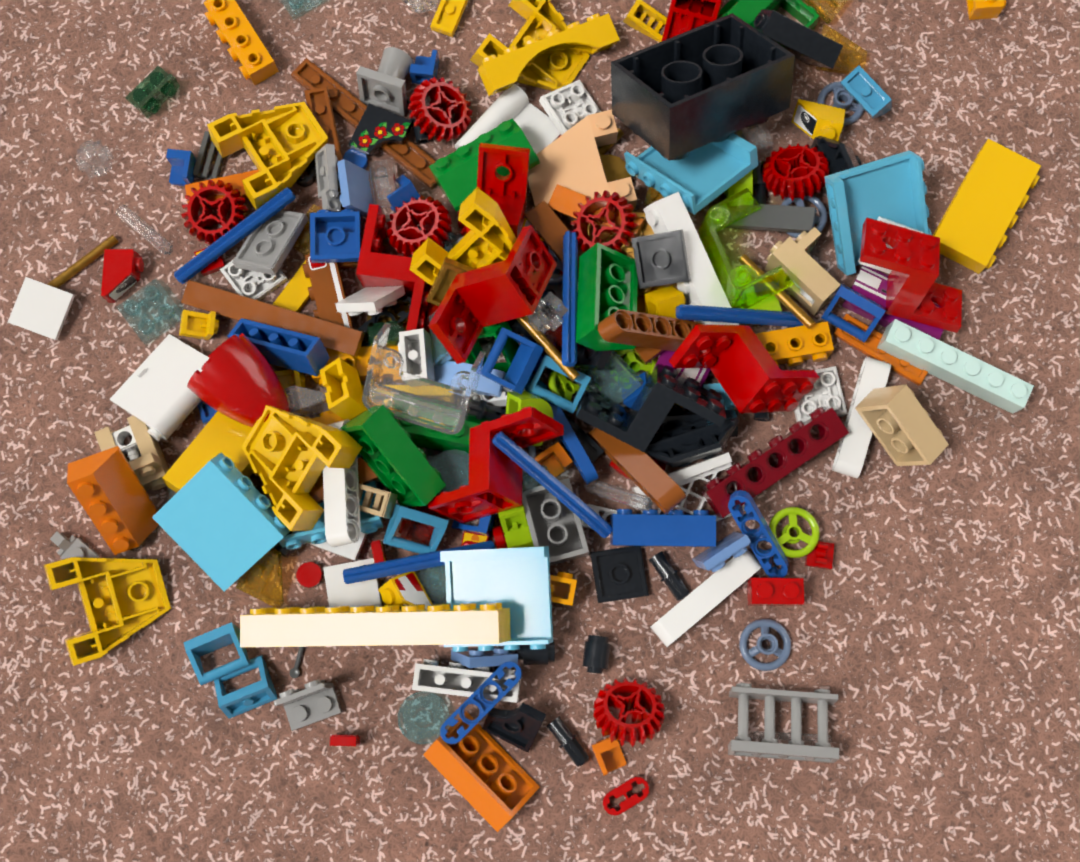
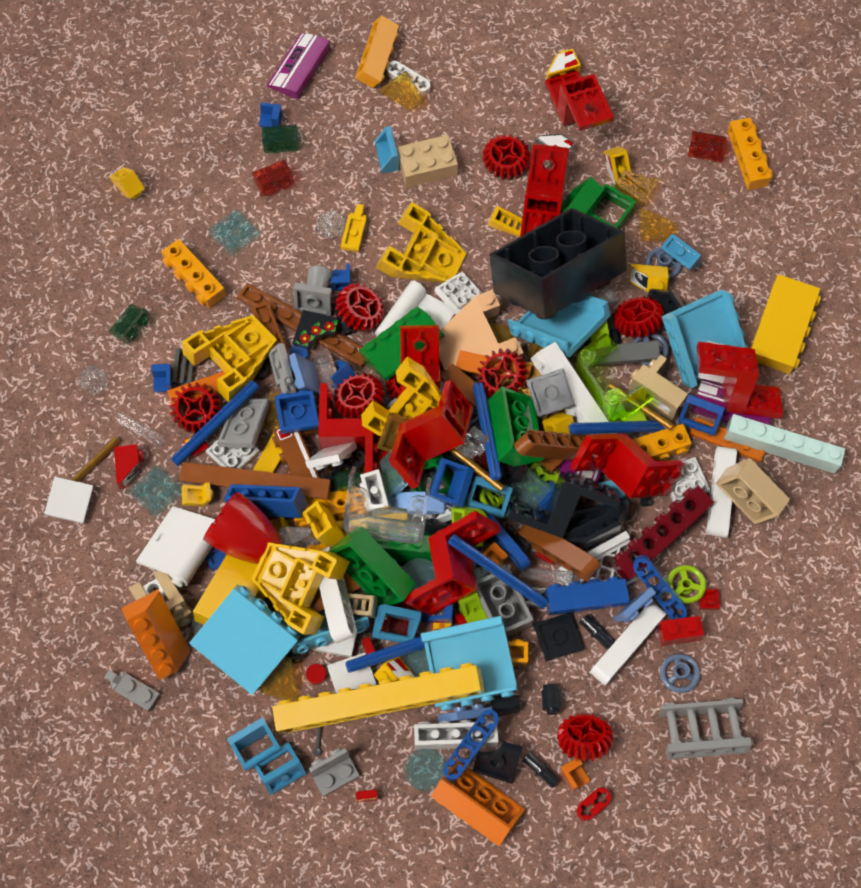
camera: 15 degrees left, 10 degrees down
(116, 597) = (165, 714): yellow wedge -> none
(589, 37) = (465, 239): yellow arch -> none
(799, 40) = (631, 223): black slope -> none

